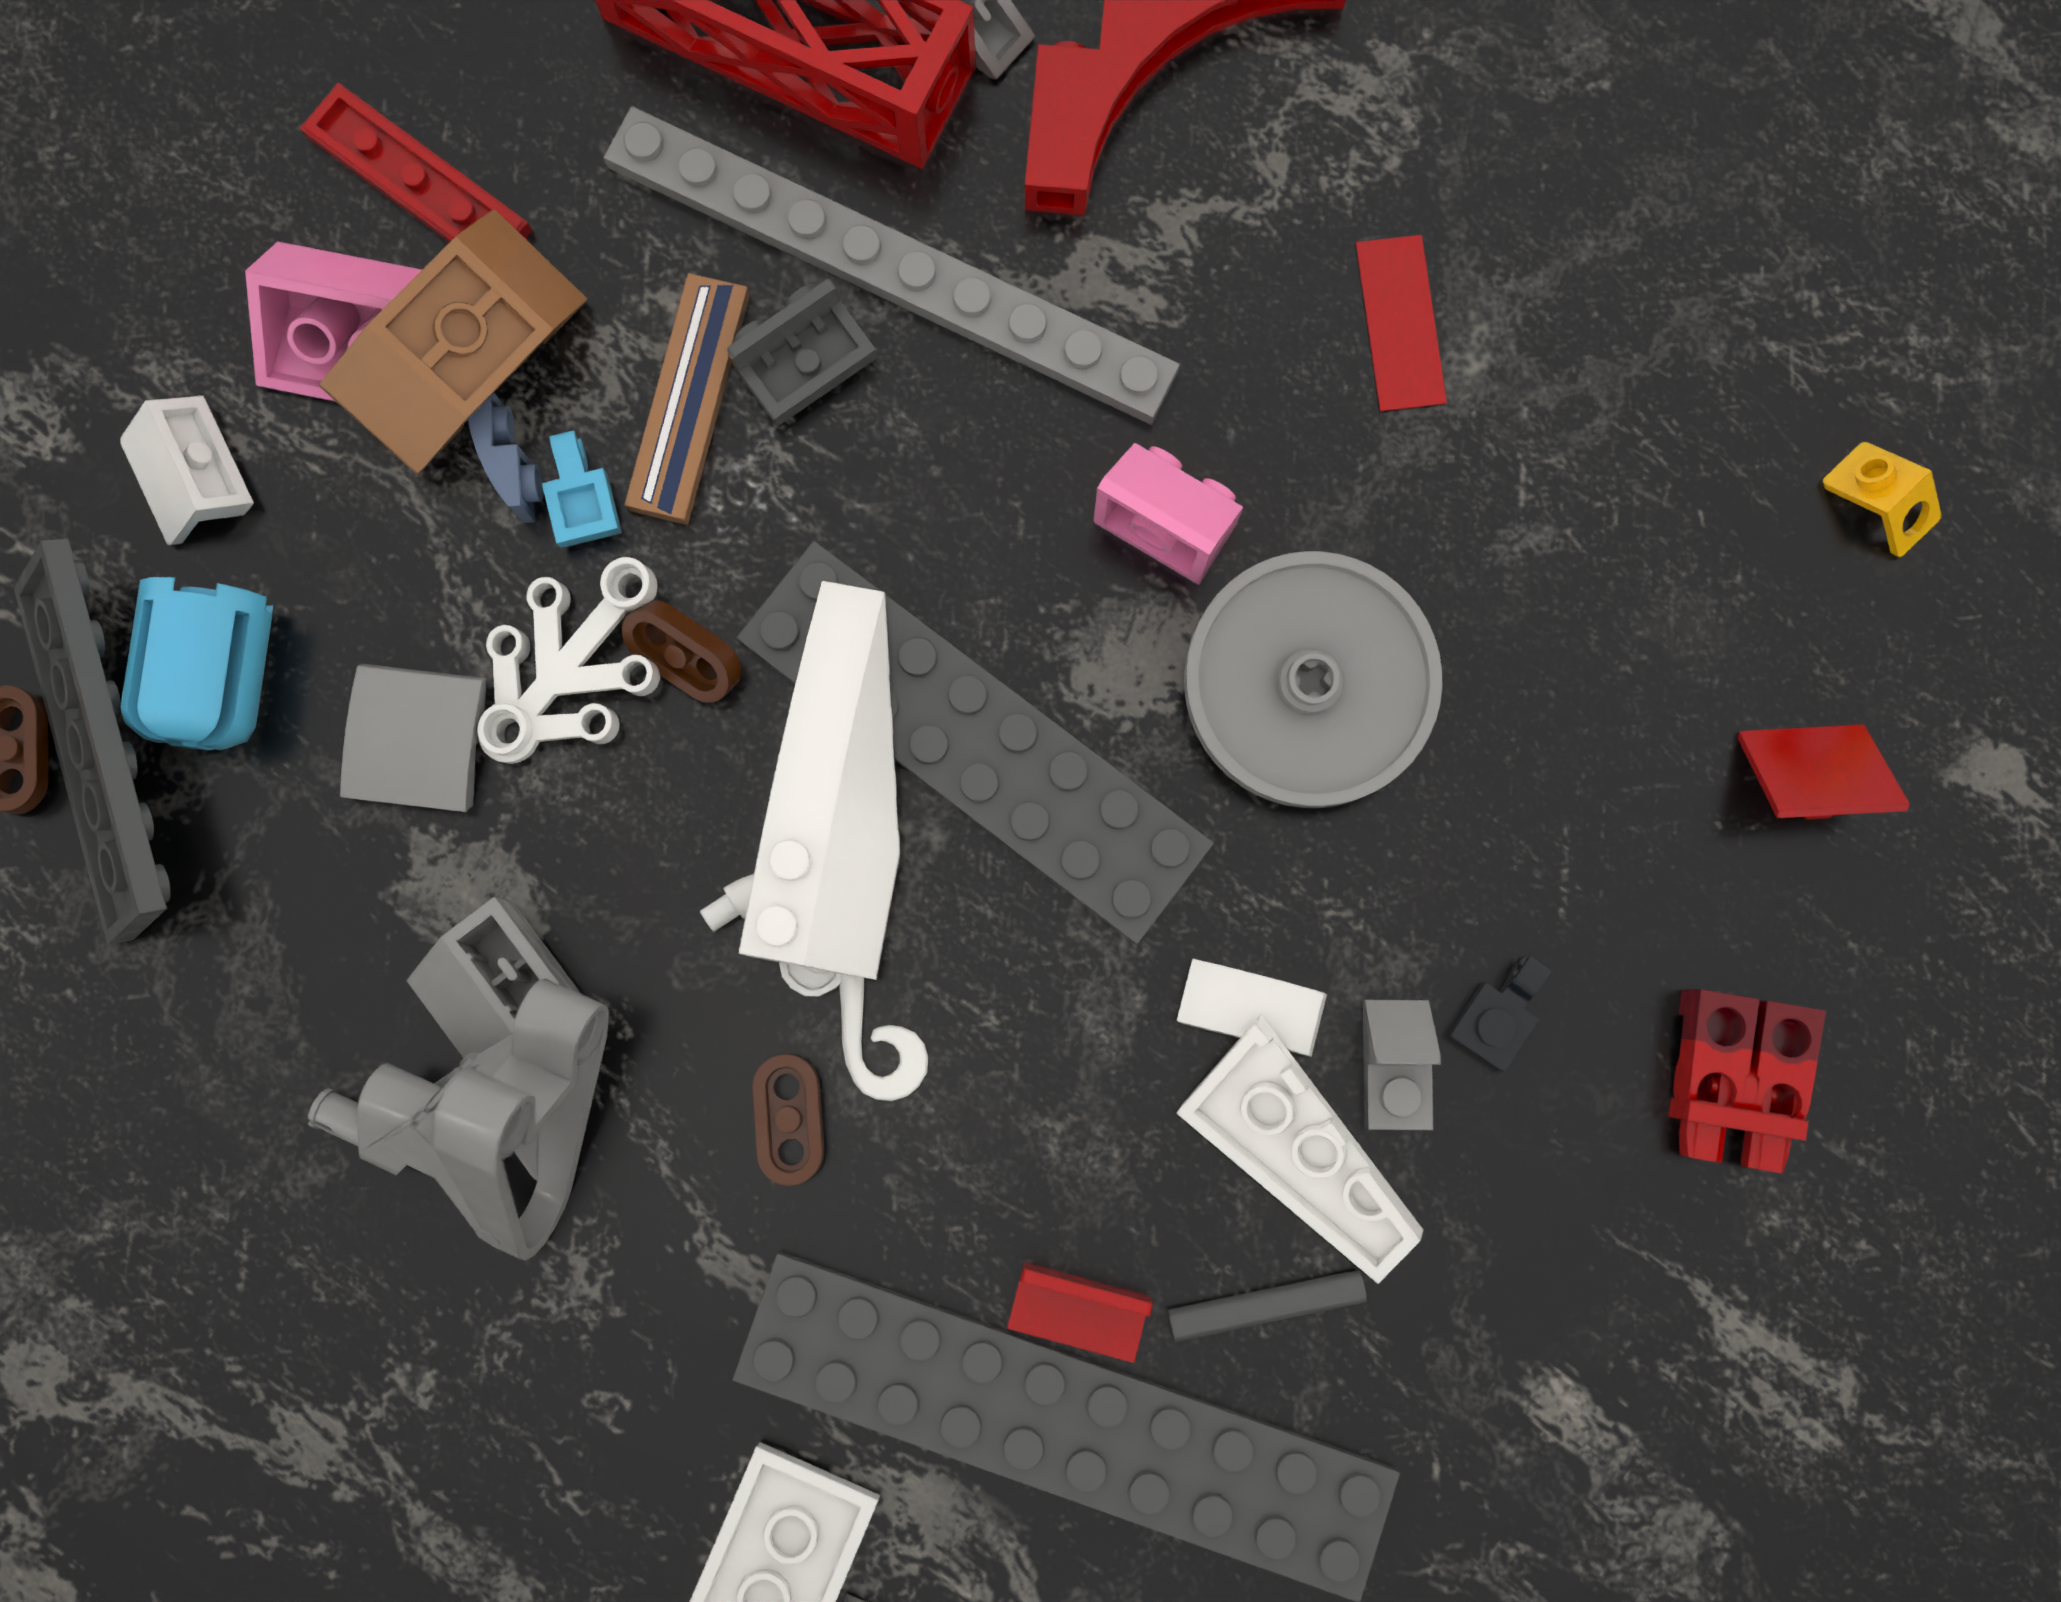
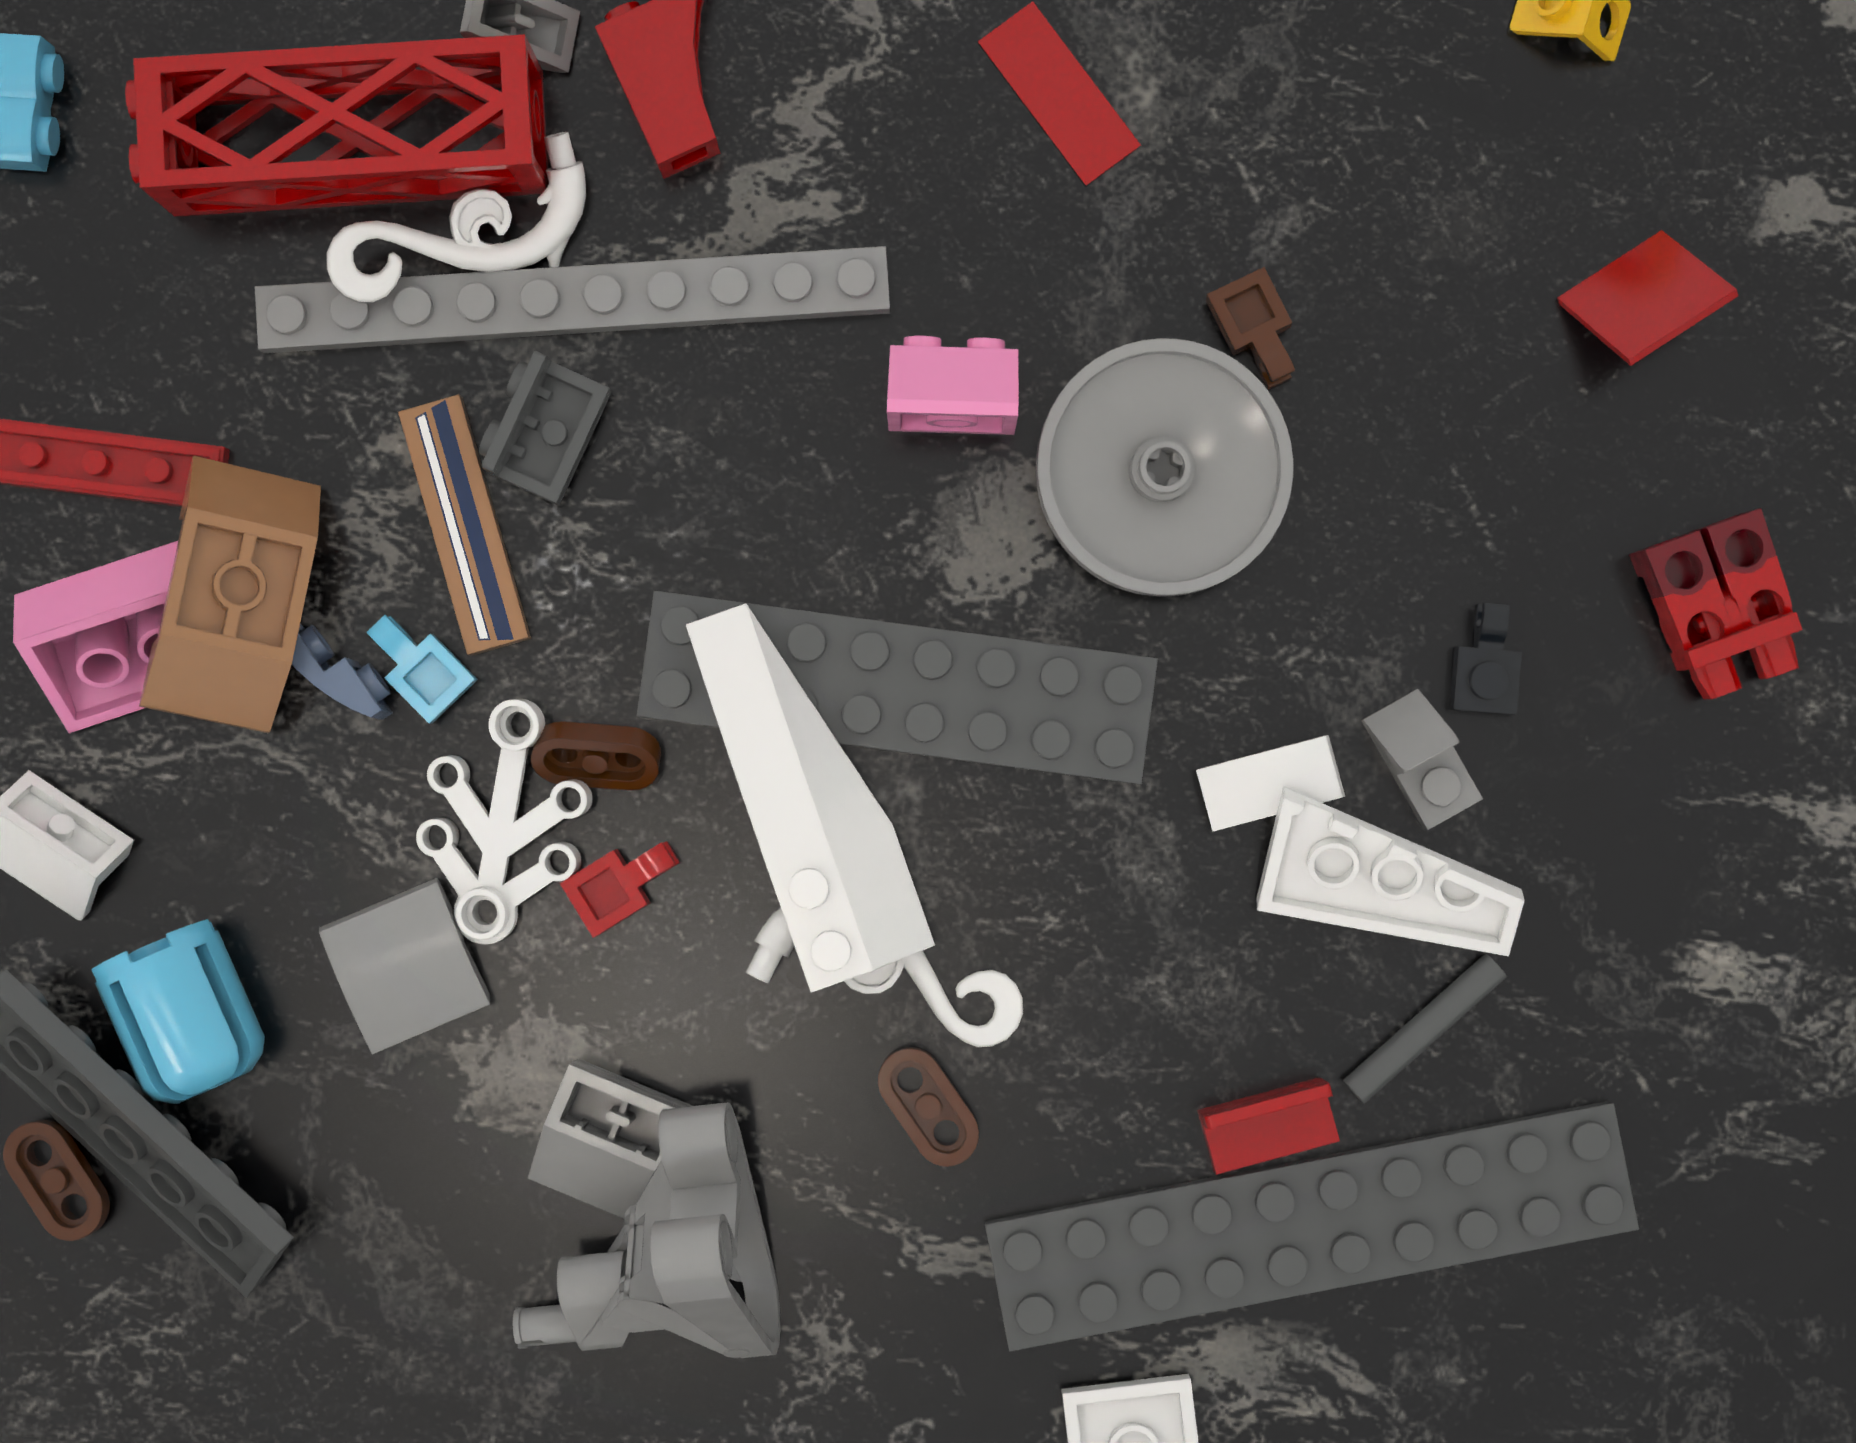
camera: 30 degrees left, 5 degrees up
(627, 772) = (612, 888): none -> red plate
(899, 202) = (466, 251): none -> white plant
(1462, 597) = (1252, 318): none -> reddish brown plate

